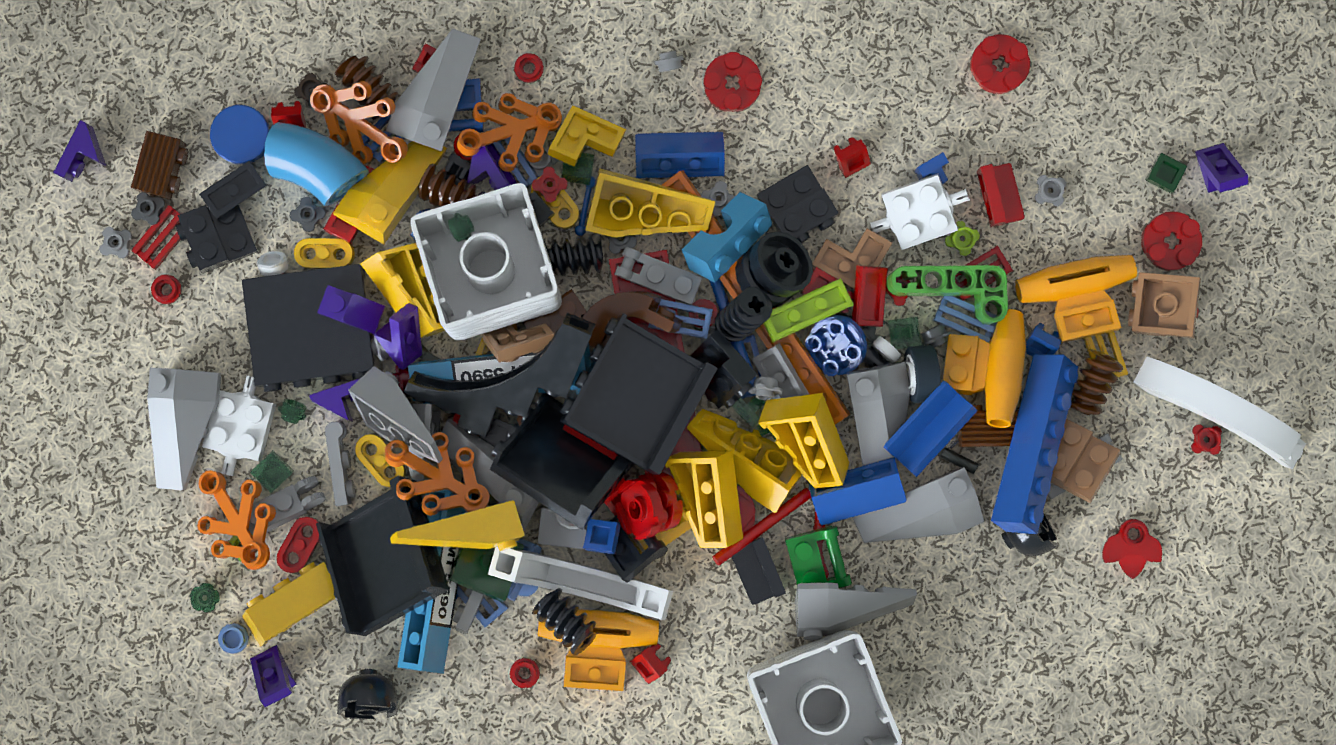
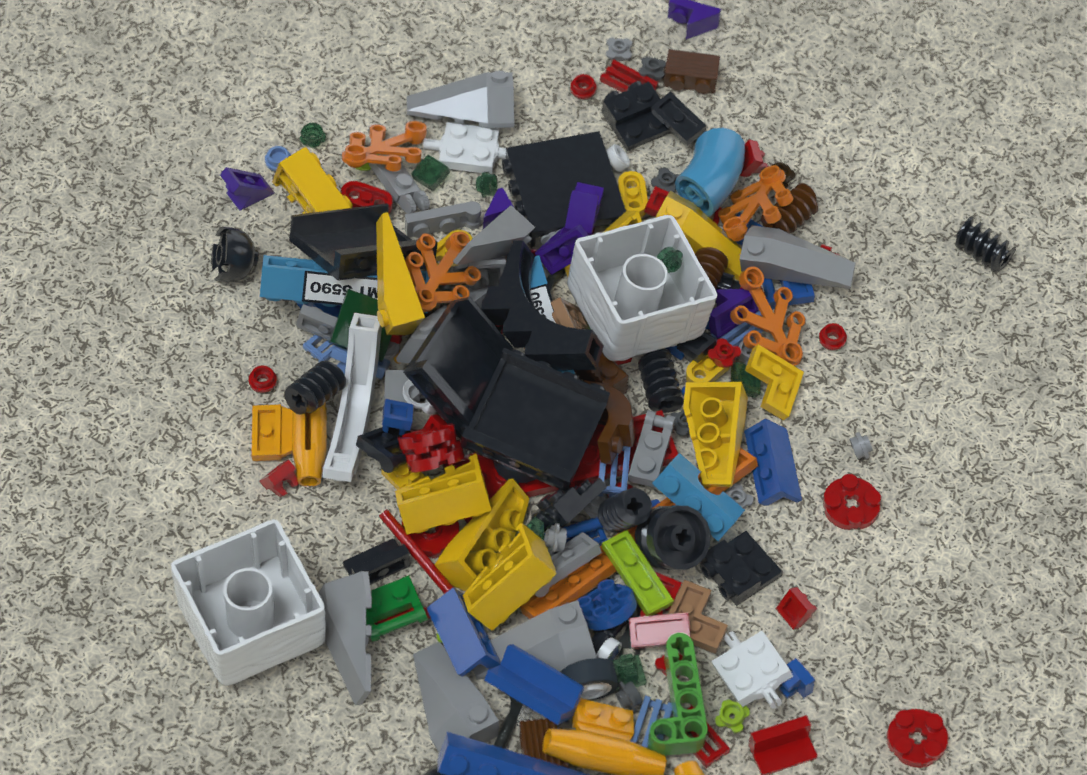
camera: 85 degrees right, 30 degrees down
(239, 134) = (732, 117): blue tile -> none

